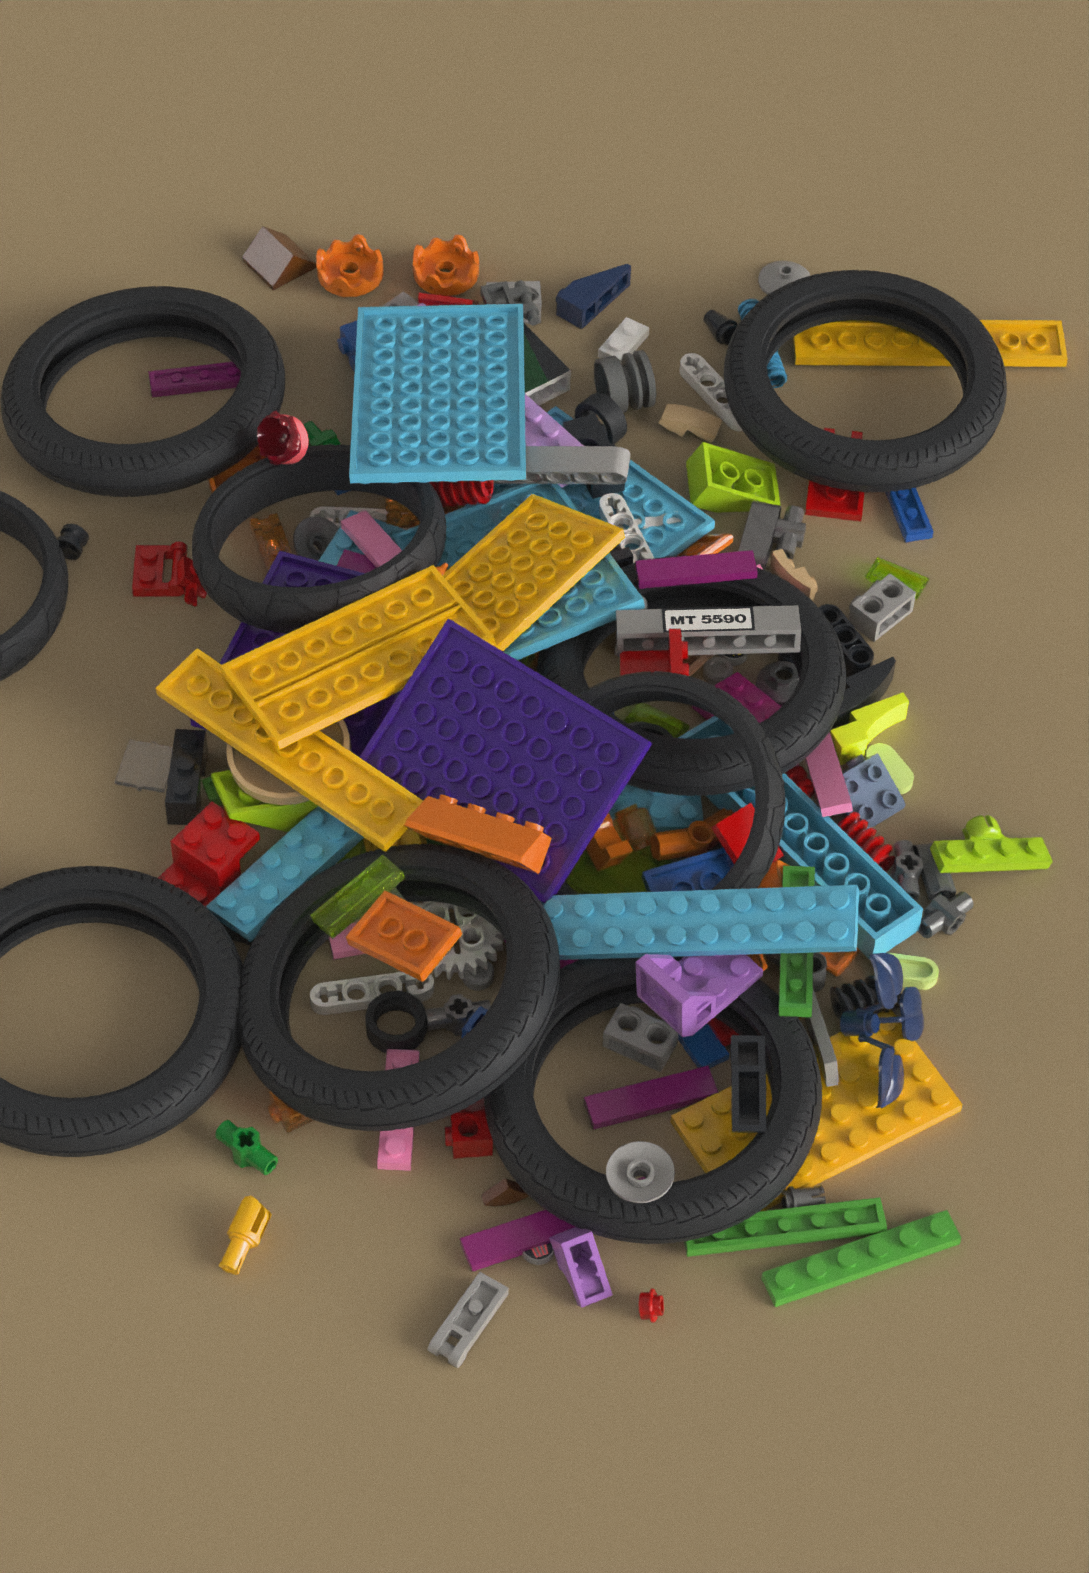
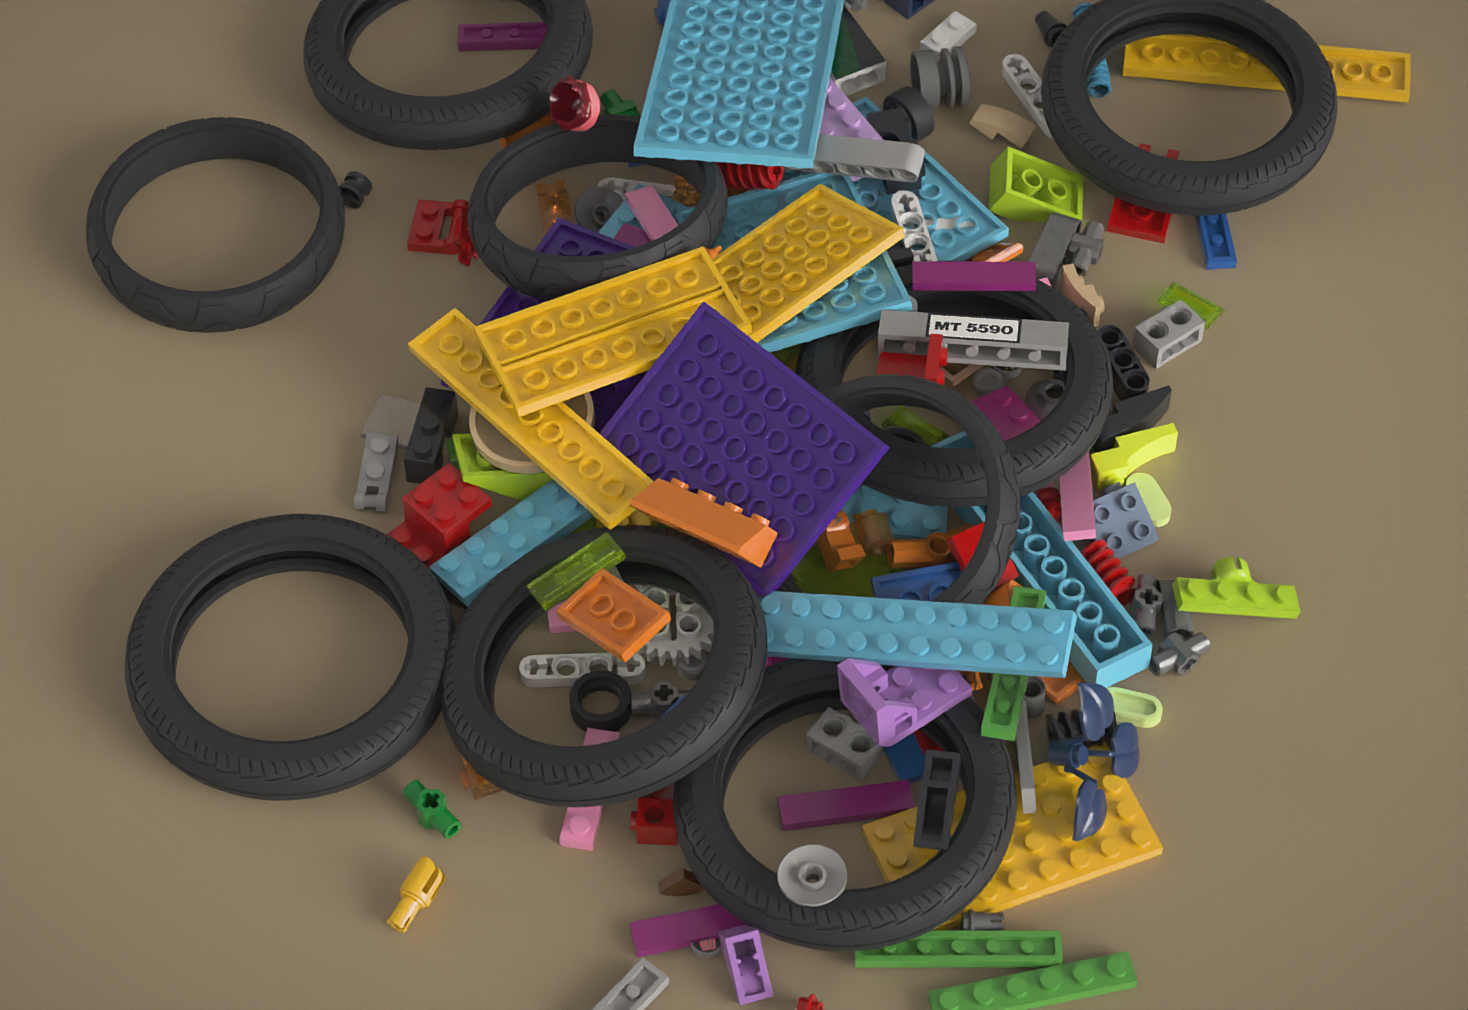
camera: 10 degrees right, 0 degrees up
(137, 817) = (376, 471): none -> light grey plate

